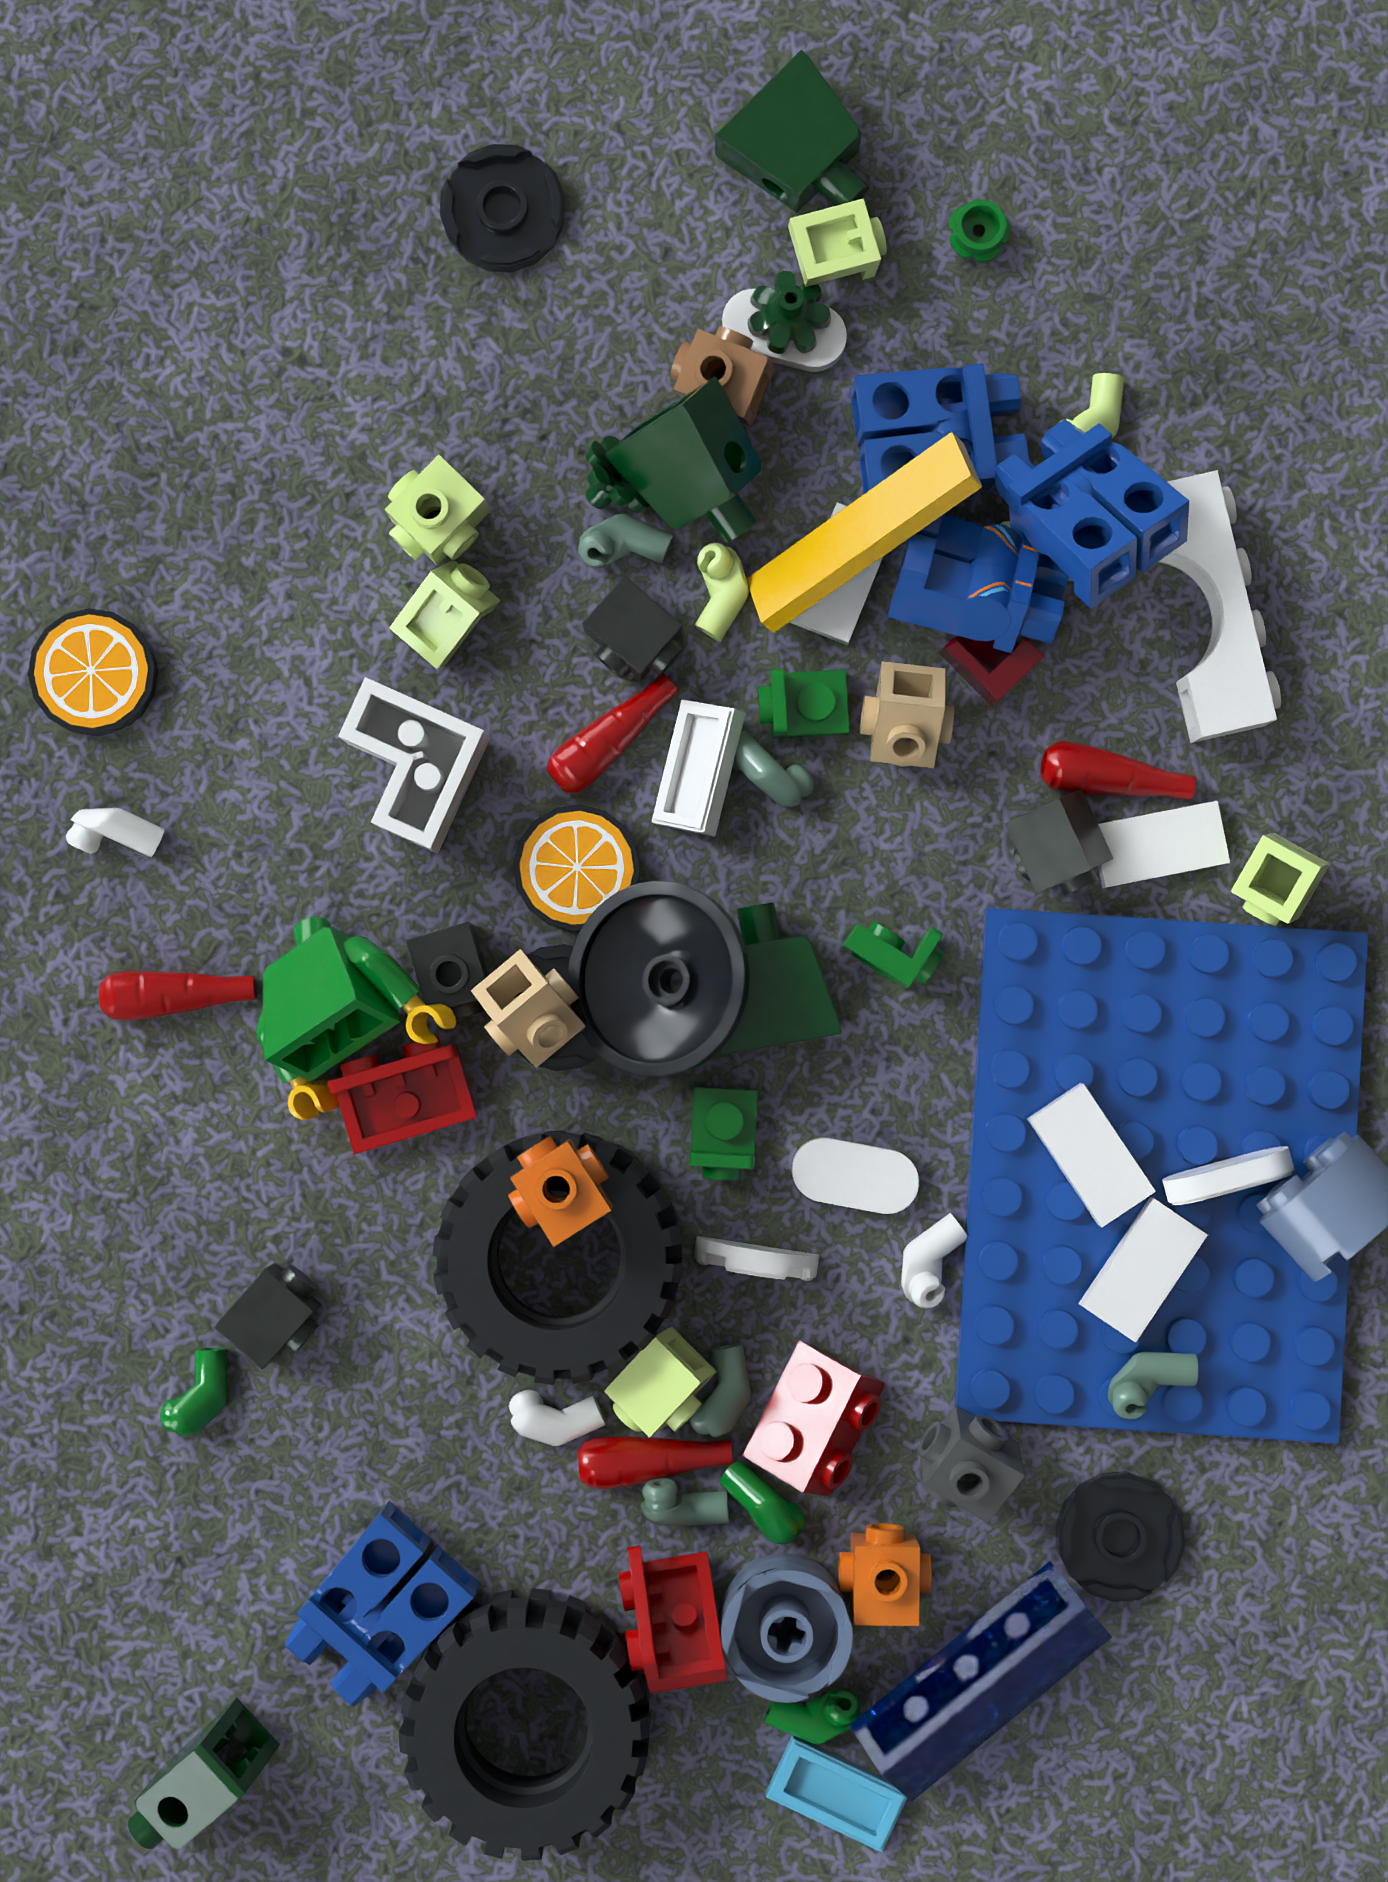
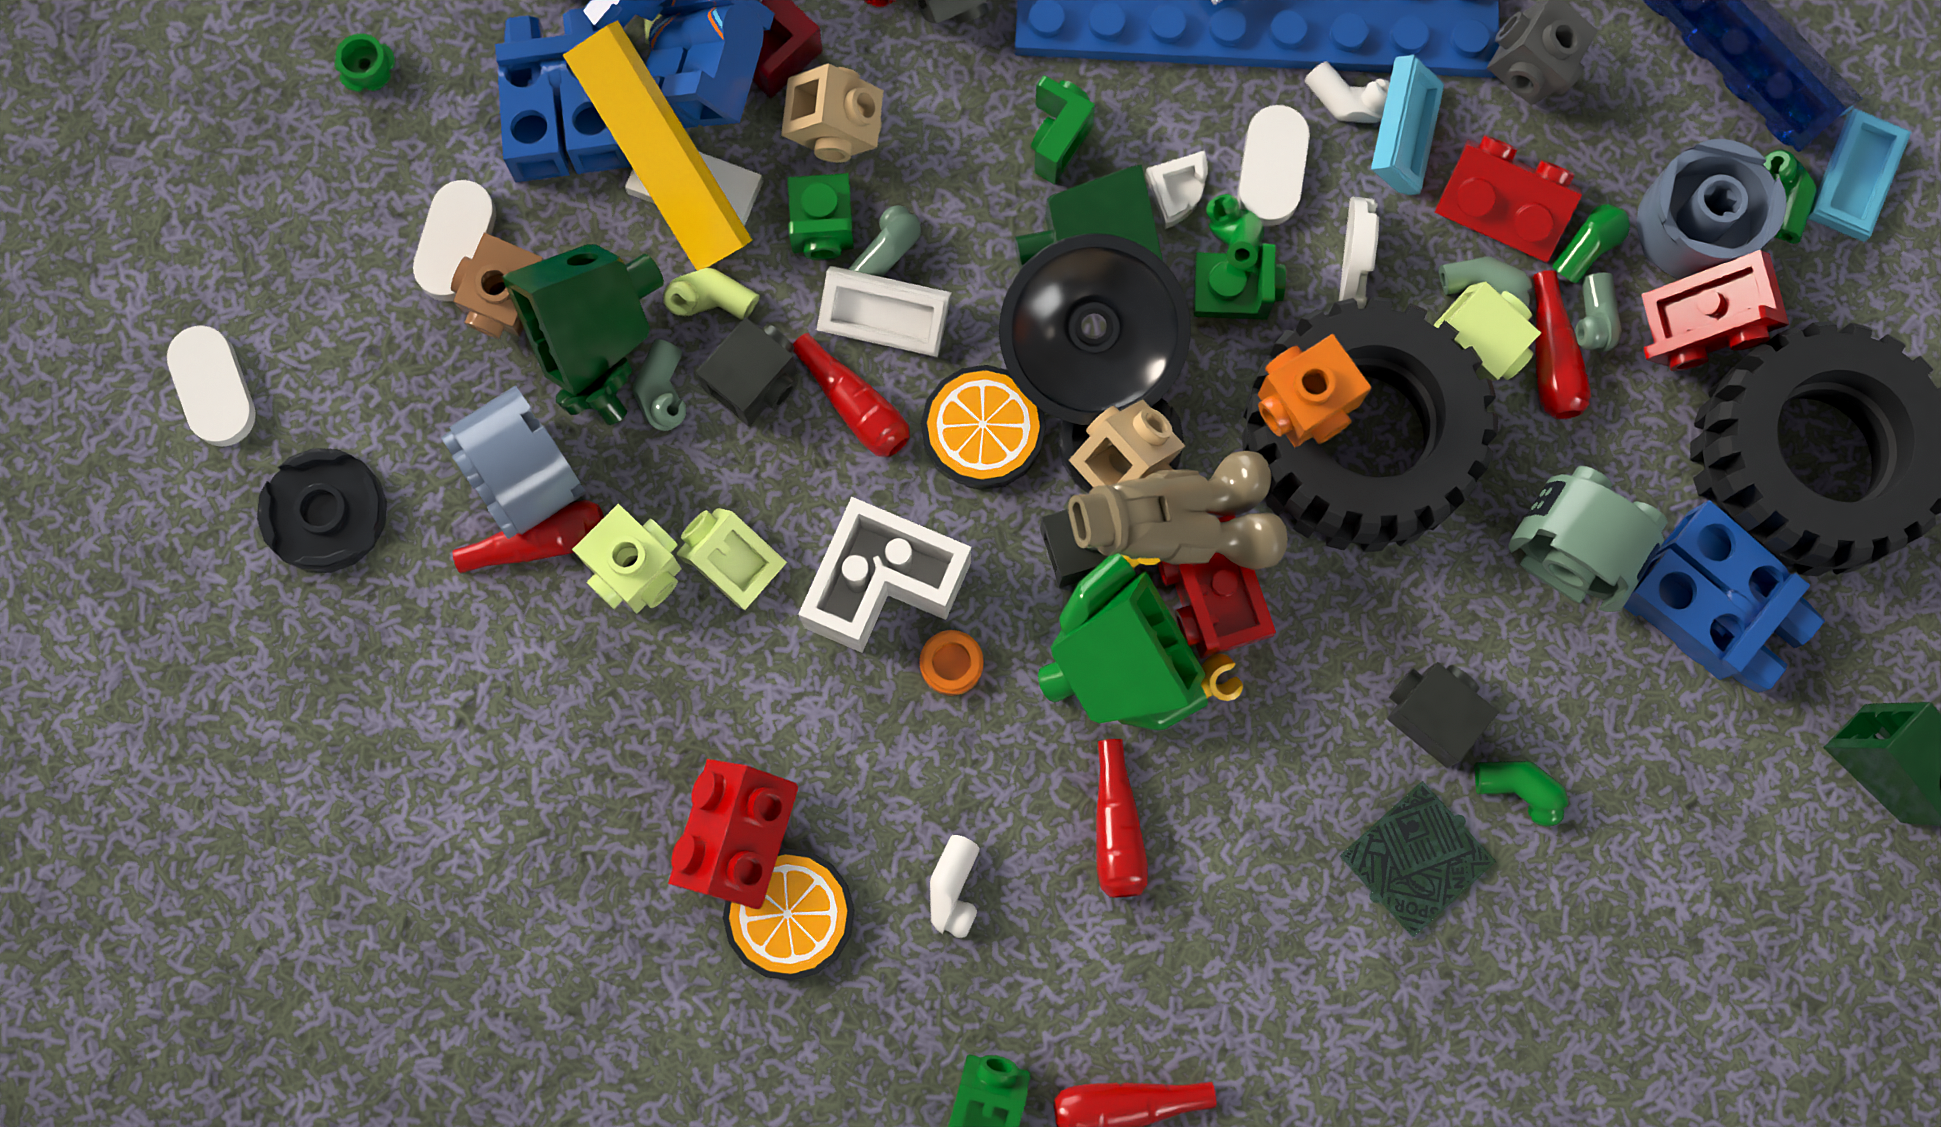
camera: 90 degrees left, 10 degrees down
(135, 1285) = (1417, 859): none -> clear green piece
(165, 616) = (733, 833): none -> red bracket
(336, 832) = (951, 662): none -> orange tile
(431, 1470) = (1588, 538): none -> sand green brick
(447, 1043) = (1170, 518): none -> dark tan piece
(472, 435) = (548, 539): none -> red piece
(532, 394) = (512, 463): none -> sand blue brick
(550, 1424) = (1530, 439): white arm -> none
(633, 91) = (211, 386): none -> white tile
(779, 1136) = (1236, 228): none -> green arm
(788, 314) = (439, 231): dark green plant -> none
(795, 139) = (269, 224): dark green torso -> none
(833, 1075) = (1178, 186): none -> white tile
(837, 242) = (372, 183): yellowish green bracket -> none
(890, 1598) = (1653, 124): orange brick -> none
(892, 1317) = (1407, 125): none -> medium azure tile

